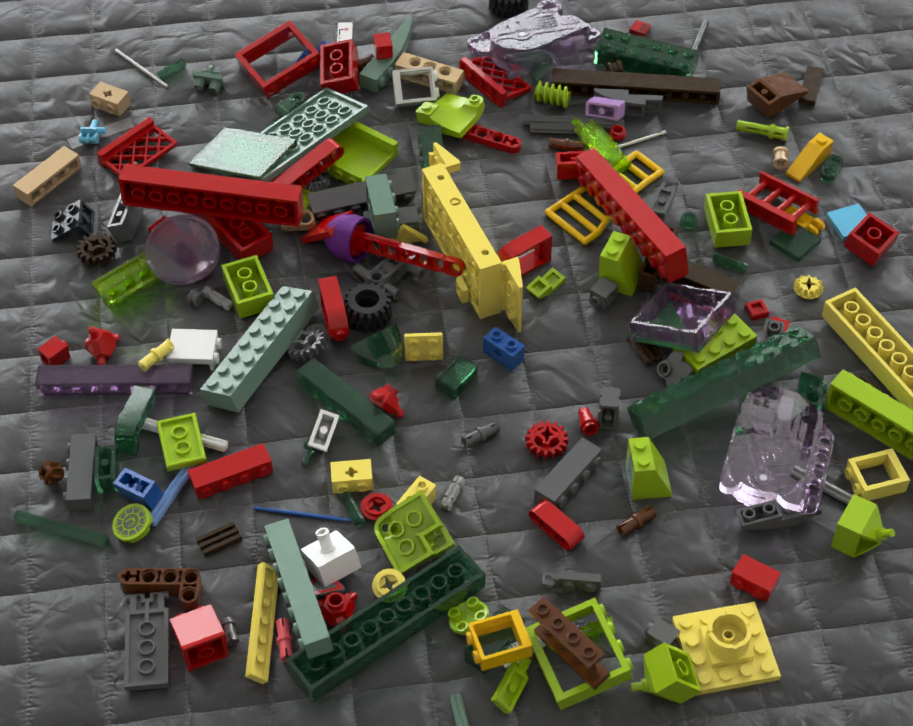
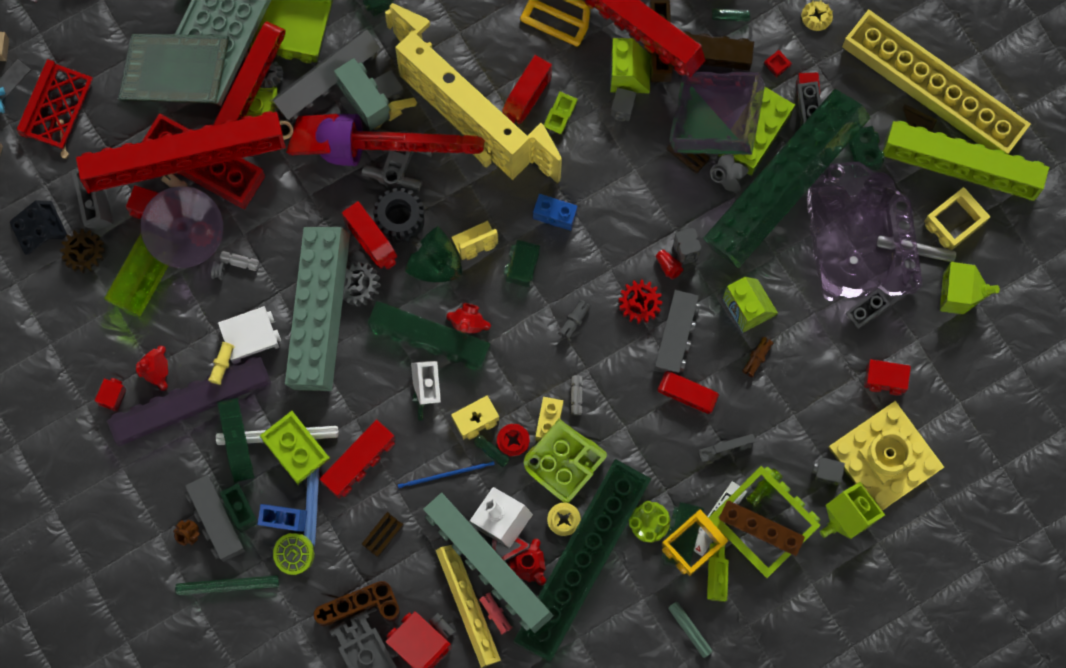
camera: 25 degrees left, 25 degrees up
(247, 286) = (266, 238): lime brick -> none

